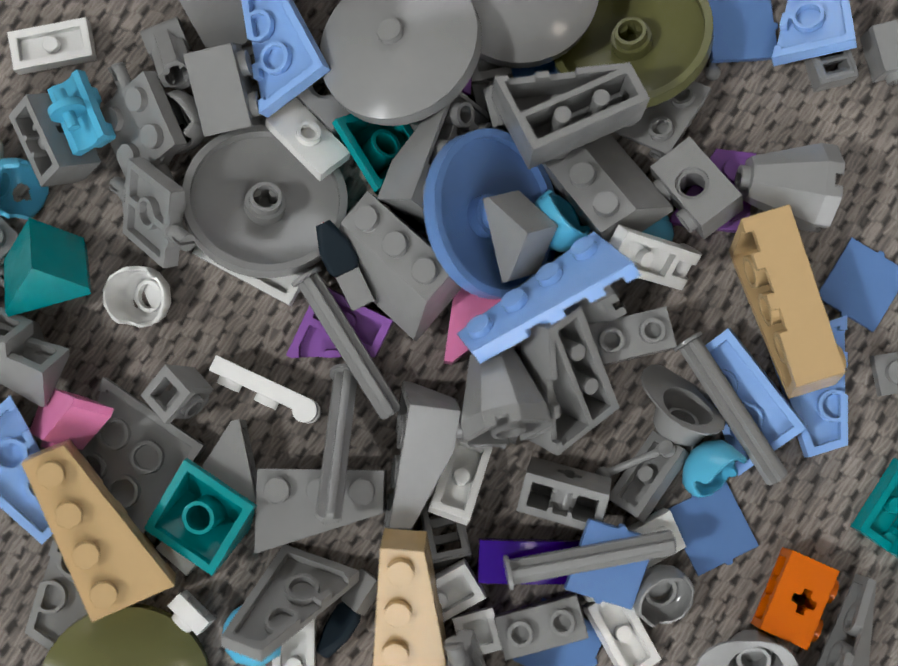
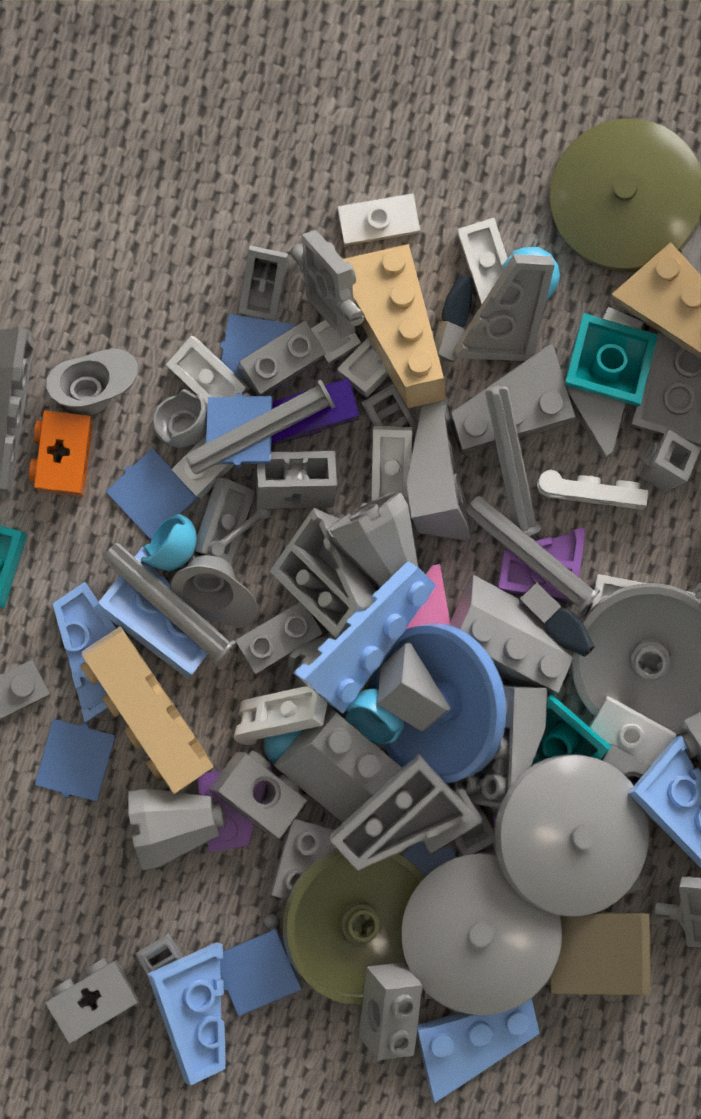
camera: 160 degrees right, 0 degrees up
(190, 613) = (592, 275): white plate -> none

